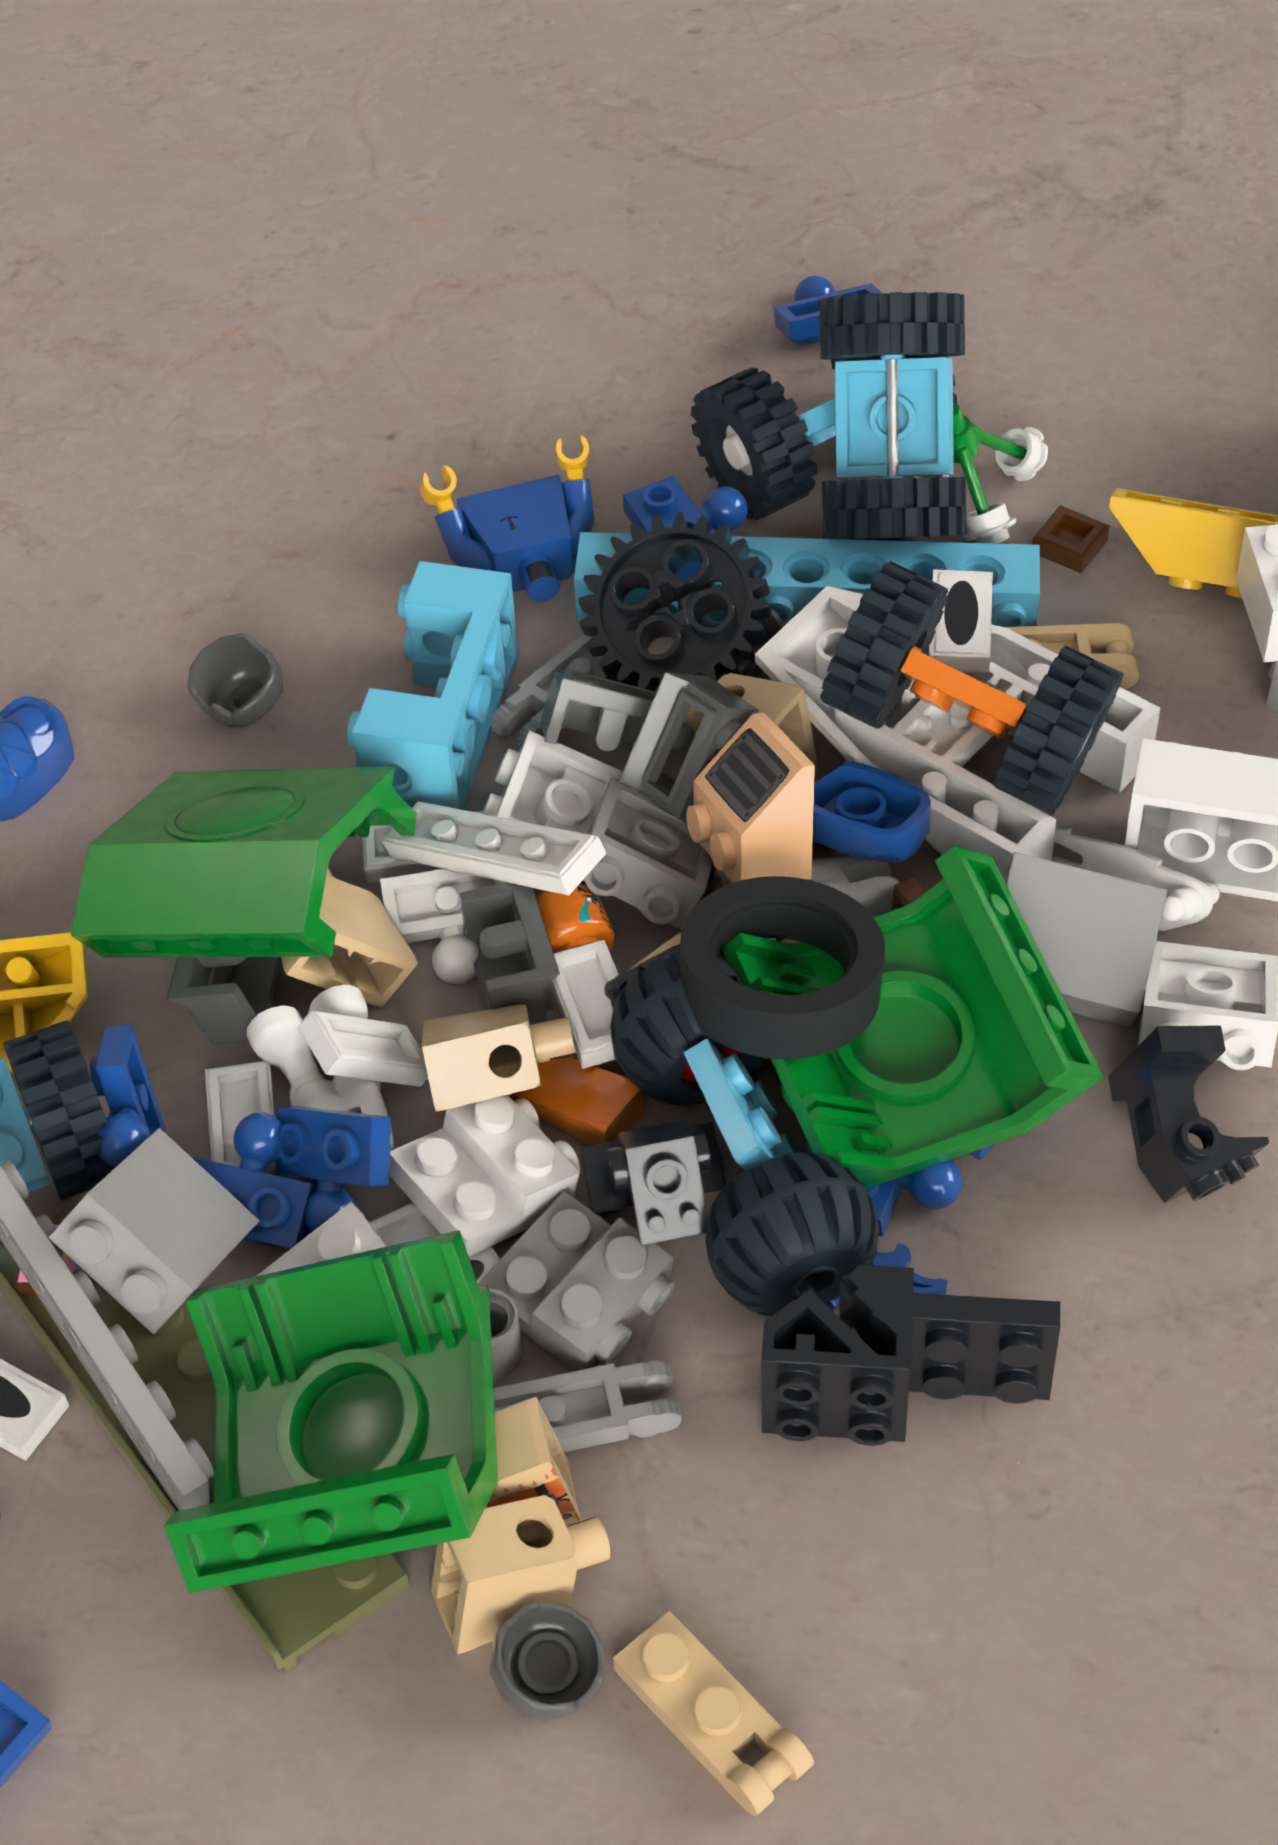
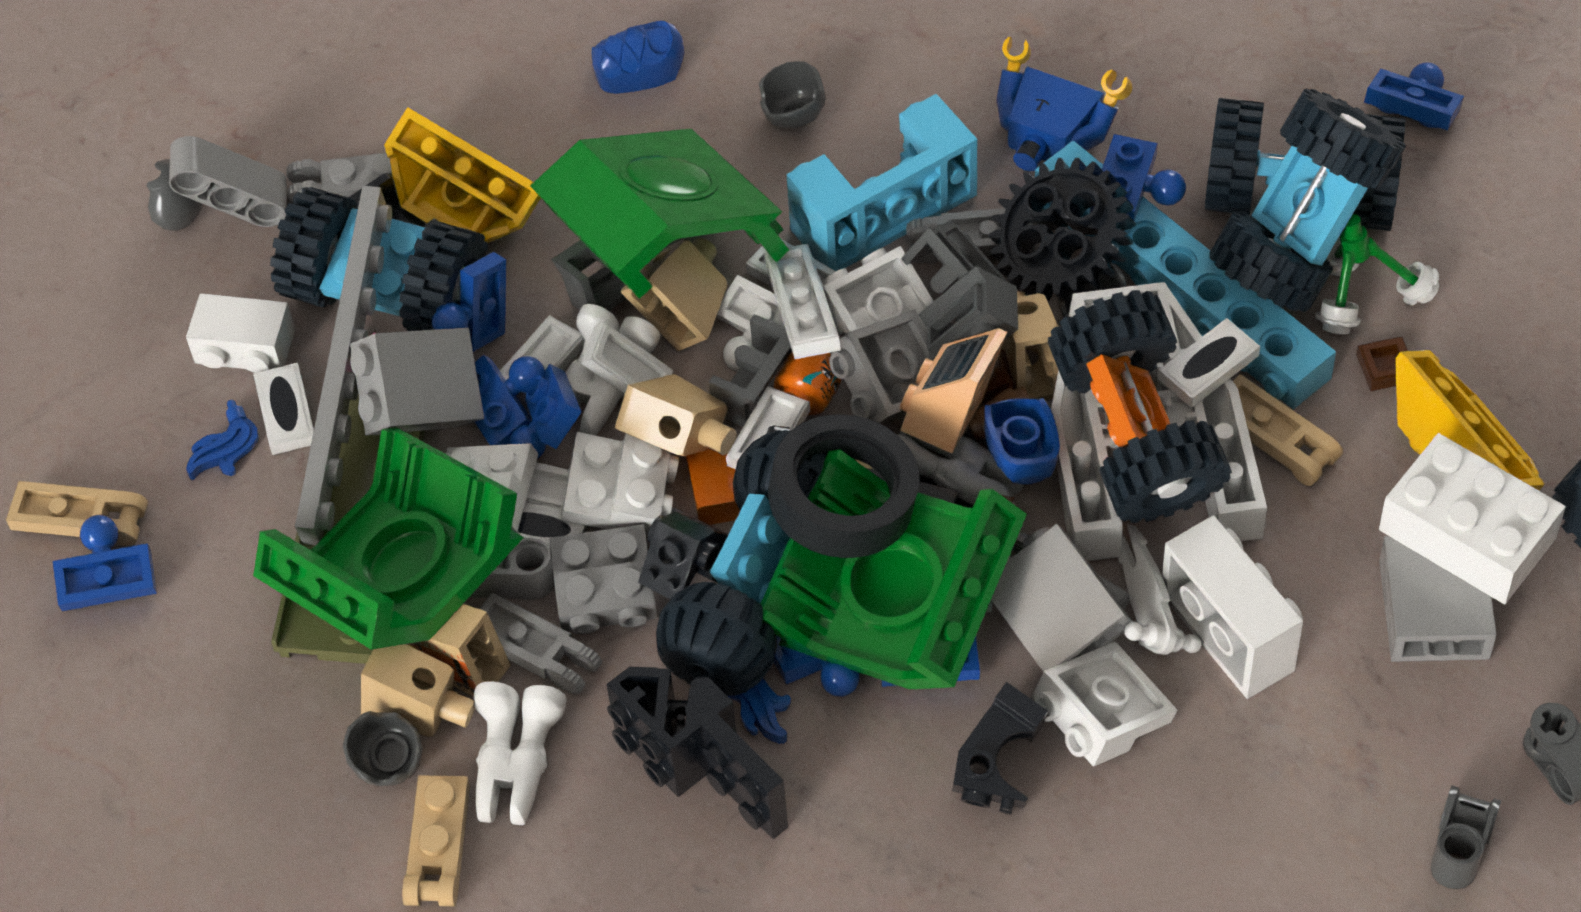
camera: 45 degrees right, 5 degrees up
(717, 1542) = (518, 768): none -> white piece

